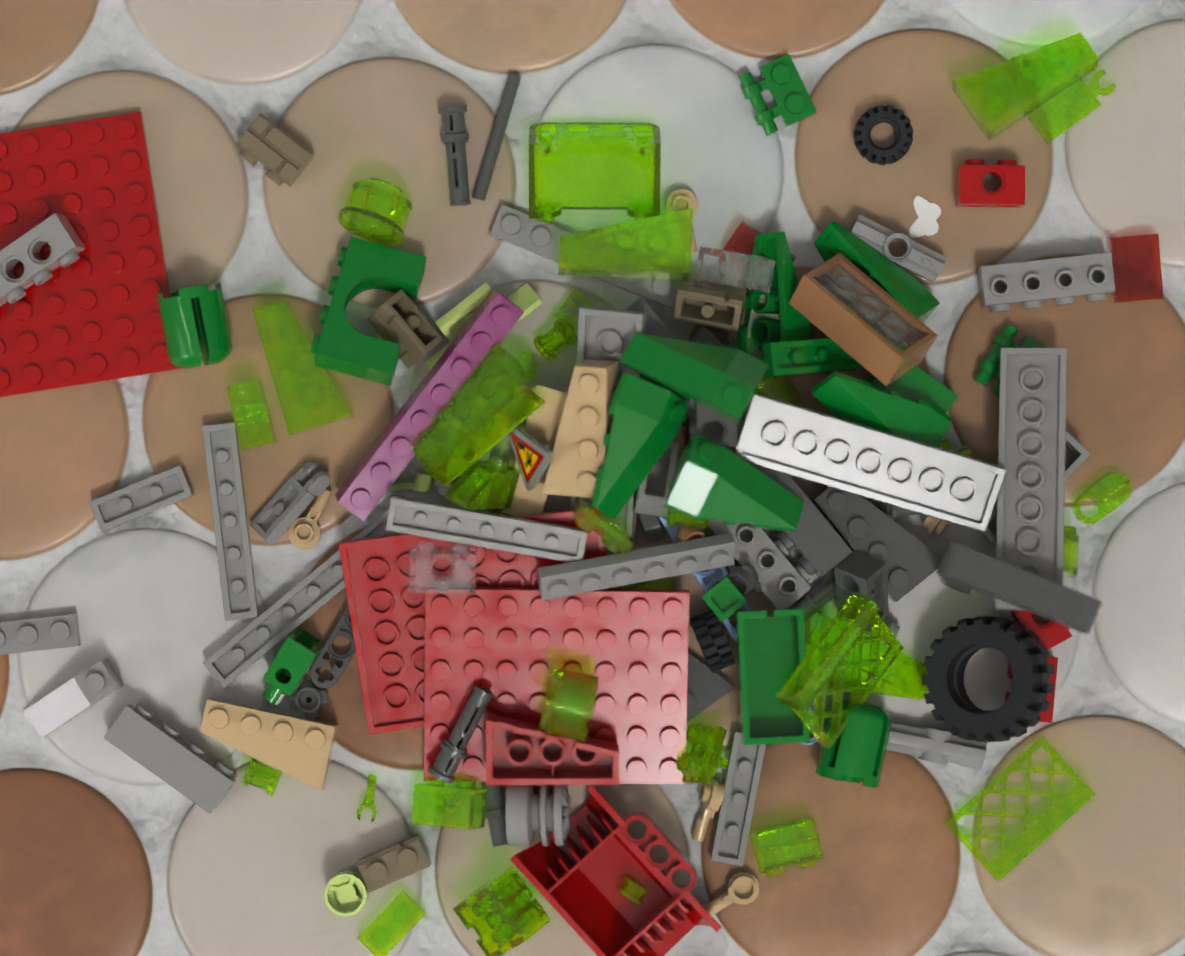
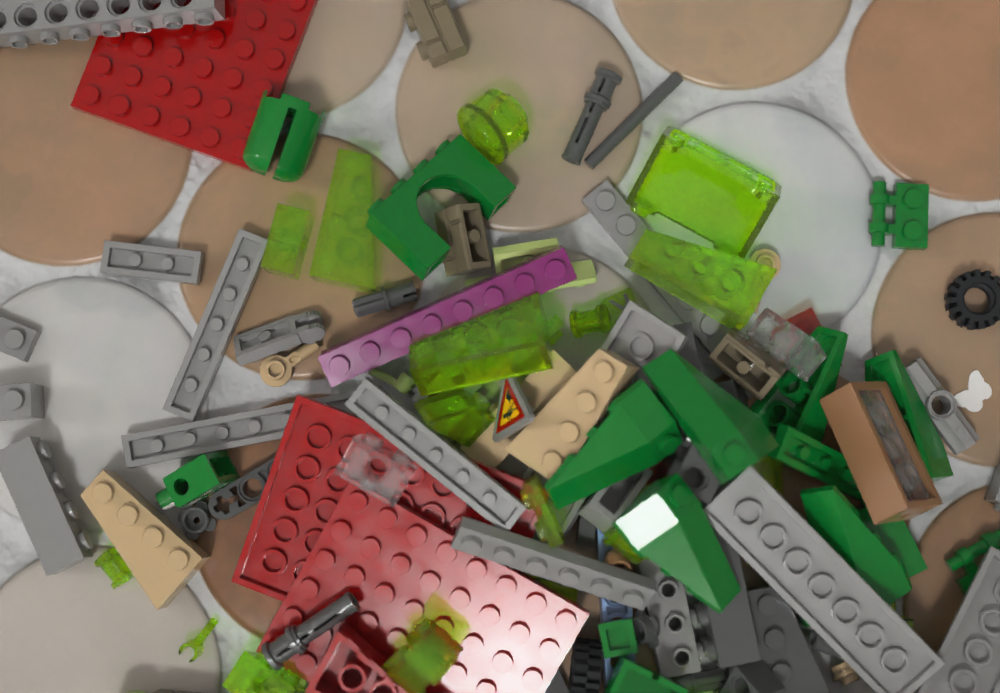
camera: 30 degrees right, 5 degrees down
(364, 418) = (384, 299): none -> dark grey axle

